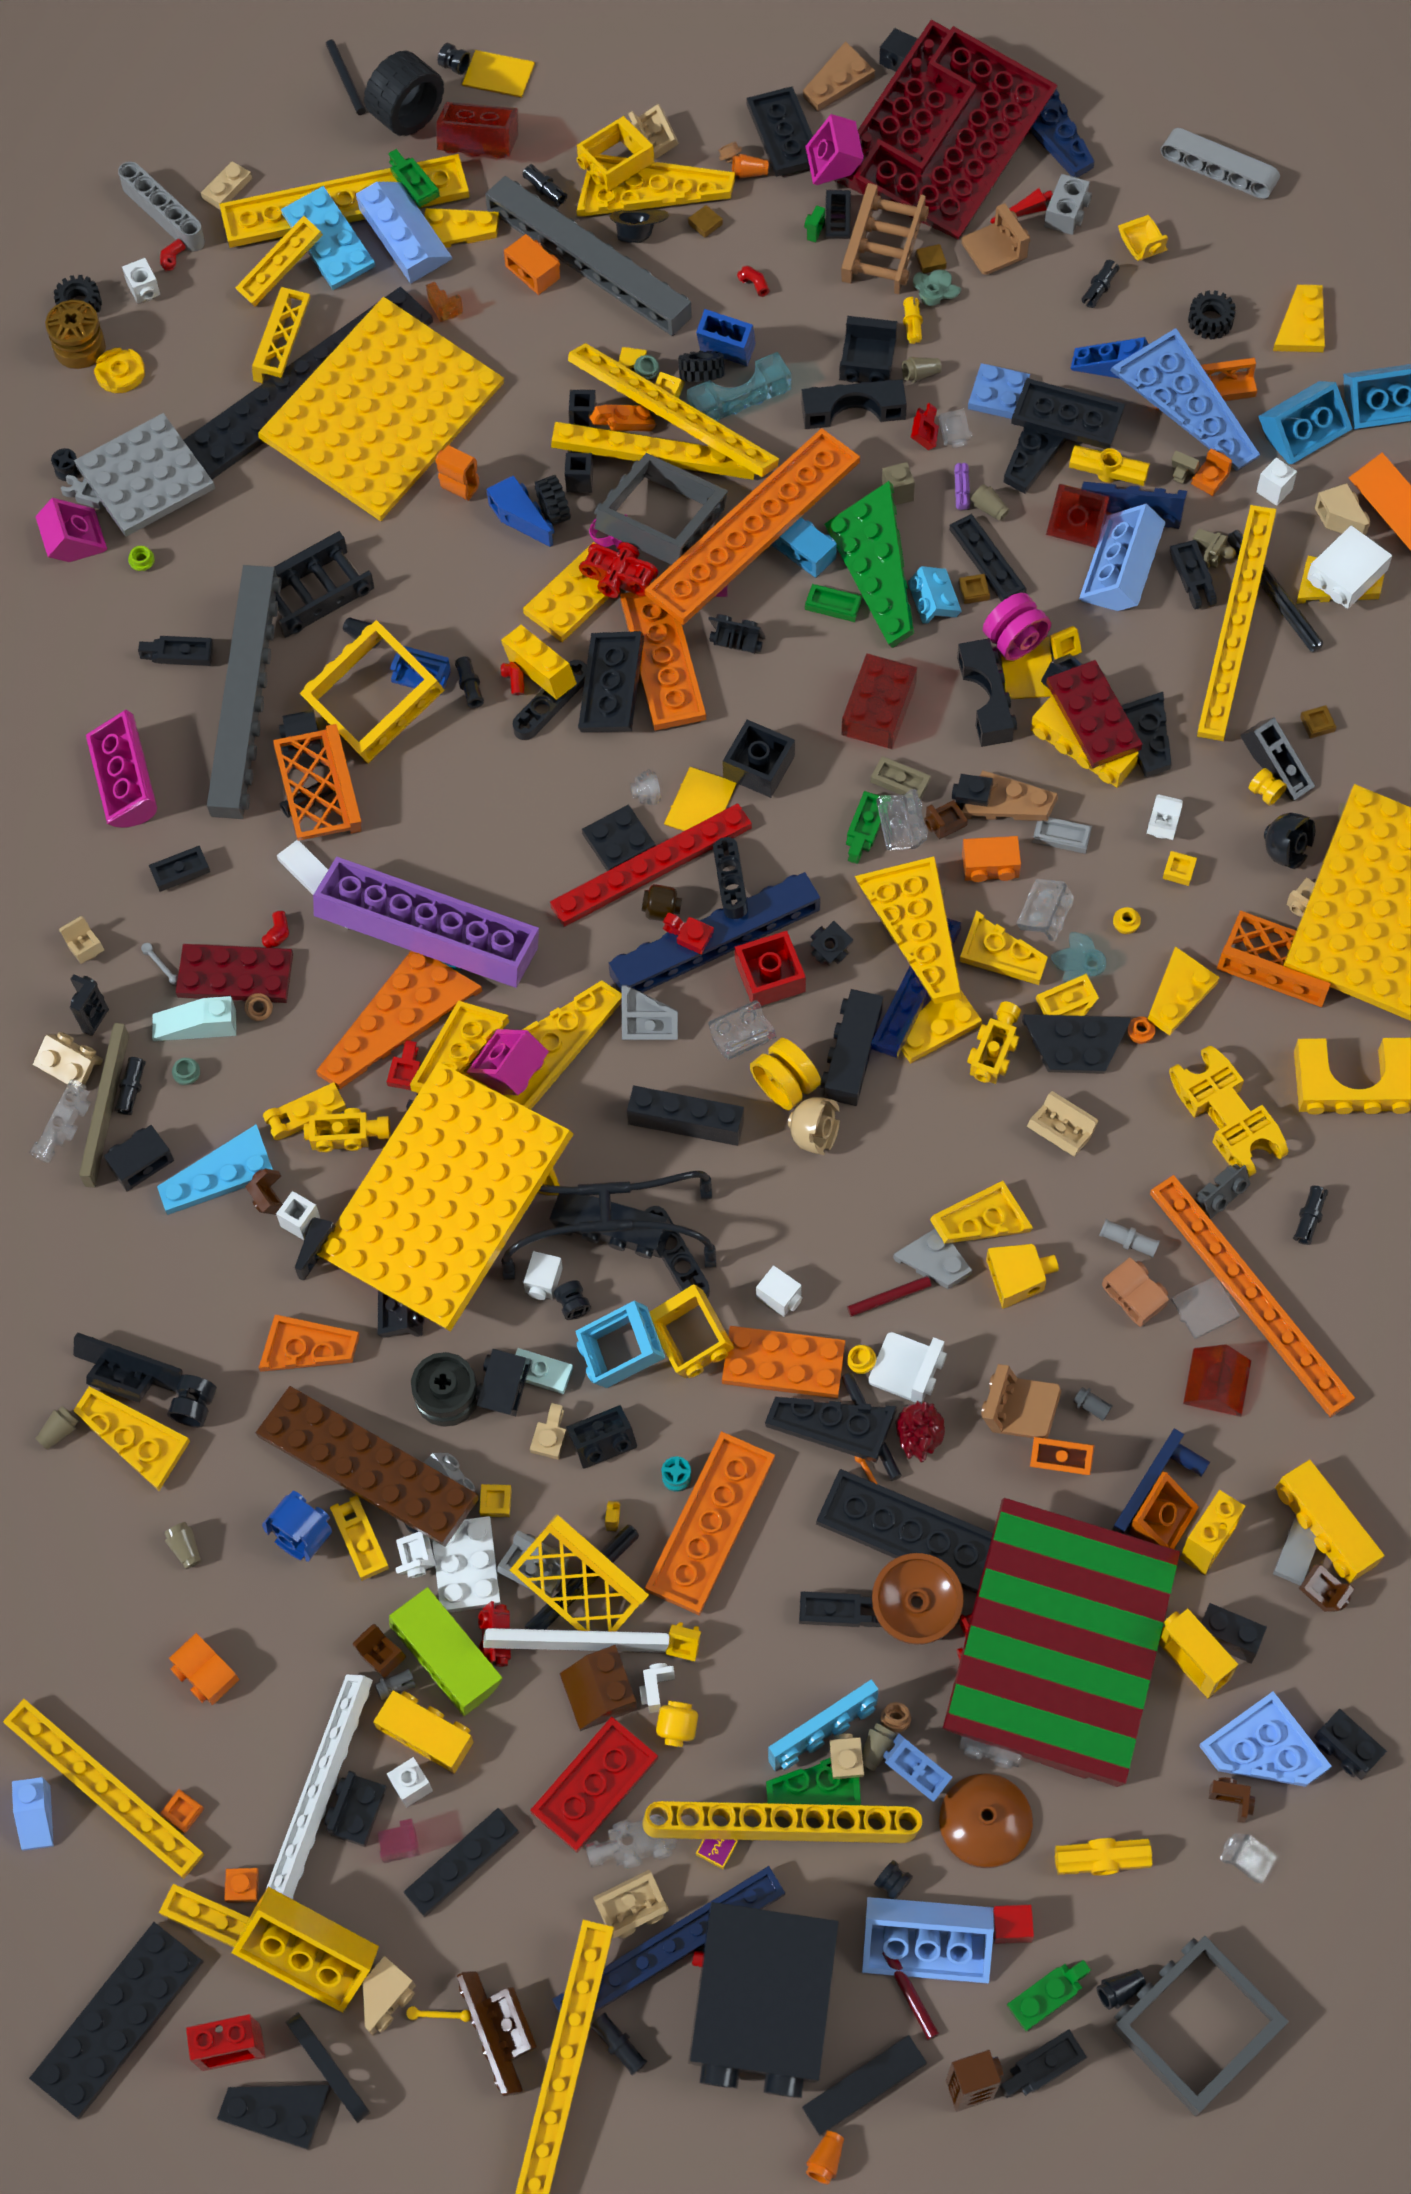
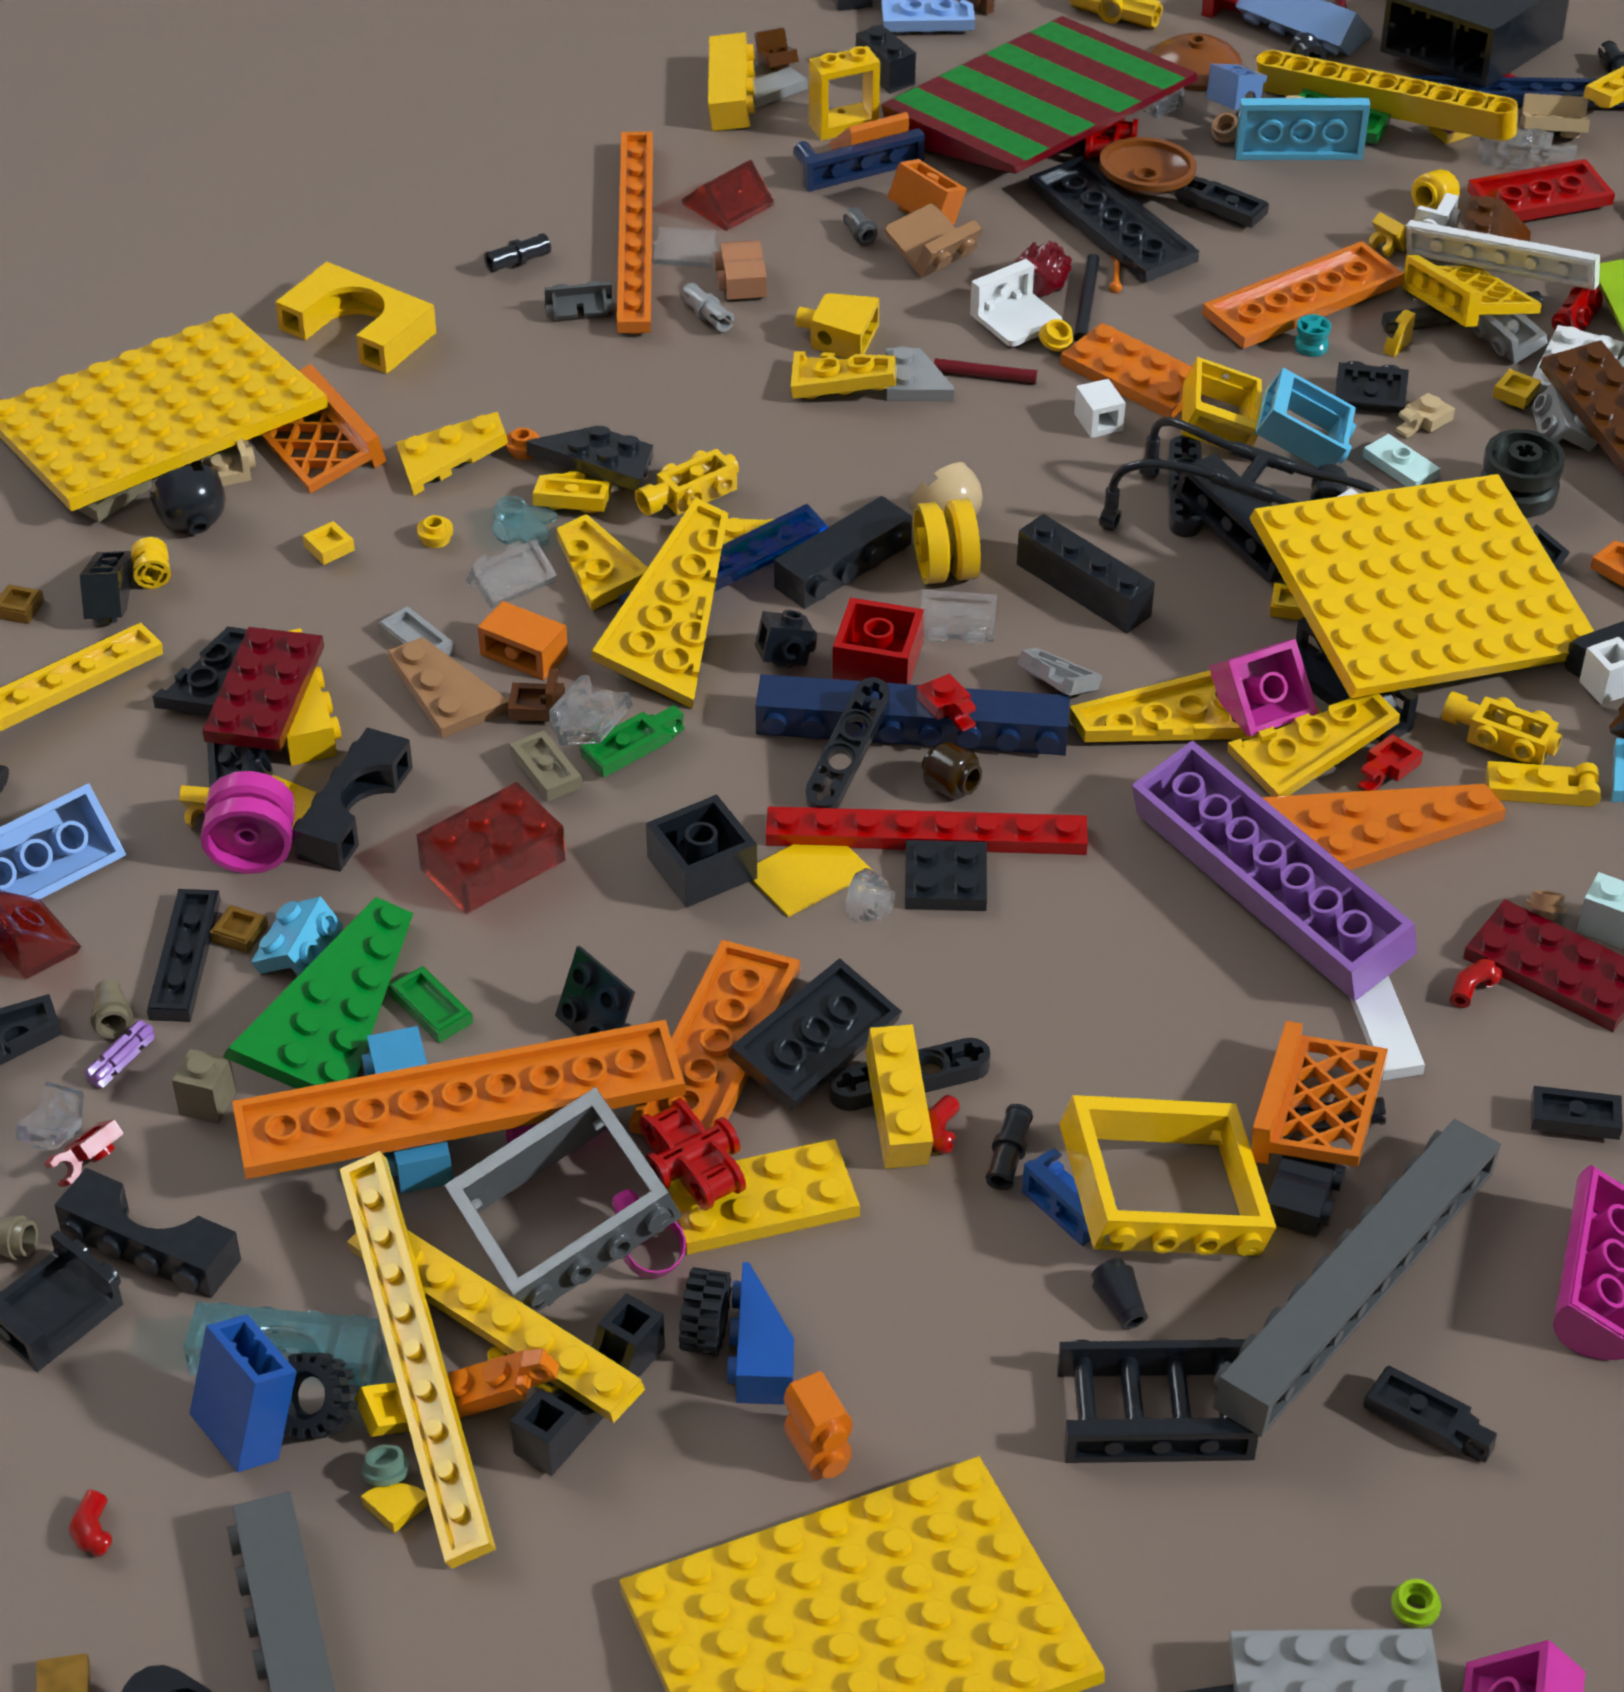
camera: 150 degrees left, 20 degrees down
(503, 1382) = (1450, 449): black brick -> none
(843, 1427) = (1125, 299): black wing -> none
(972, 790) = (481, 702): black bracket -> none
(1063, 1124) = (687, 403): tan bracket -> none
(1164, 817) = (296, 586): white bracket -> none
(1197, 1652) = (931, 40): yellow window -> none
(1217, 1095) = (509, 346): yellow piece -> none

